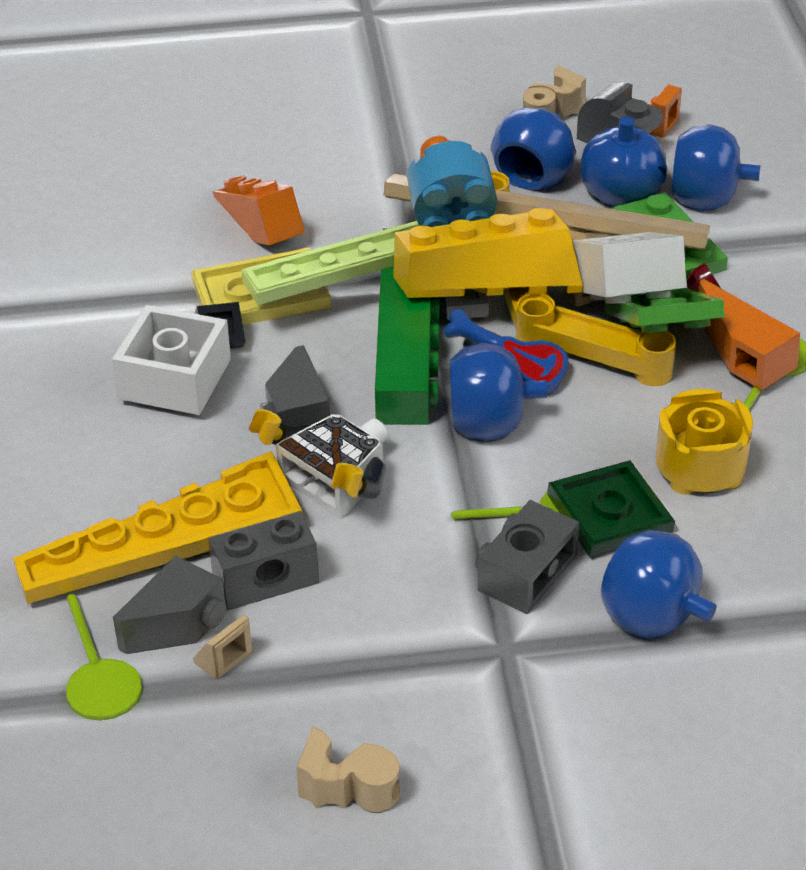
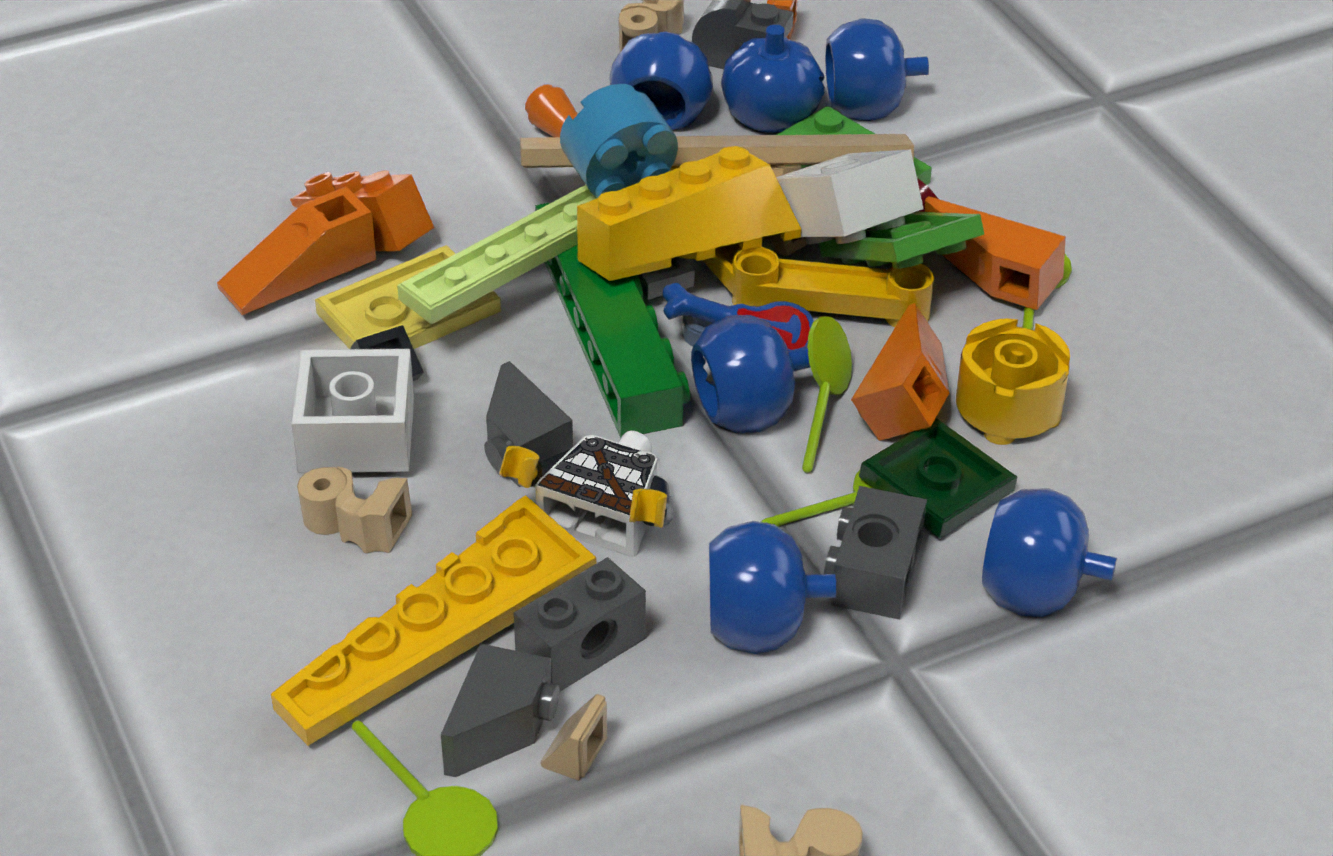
camera: 20 degrees left, 0 degrees up
(130, 430) = (332, 507): none -> tan leg
(200, 230) = (307, 248): none -> orange slope
(412, 561) = (759, 587): none -> blue piece
(562, 401) = (831, 368): none -> lime piece
(617, 421) = (905, 381): none -> orange slope

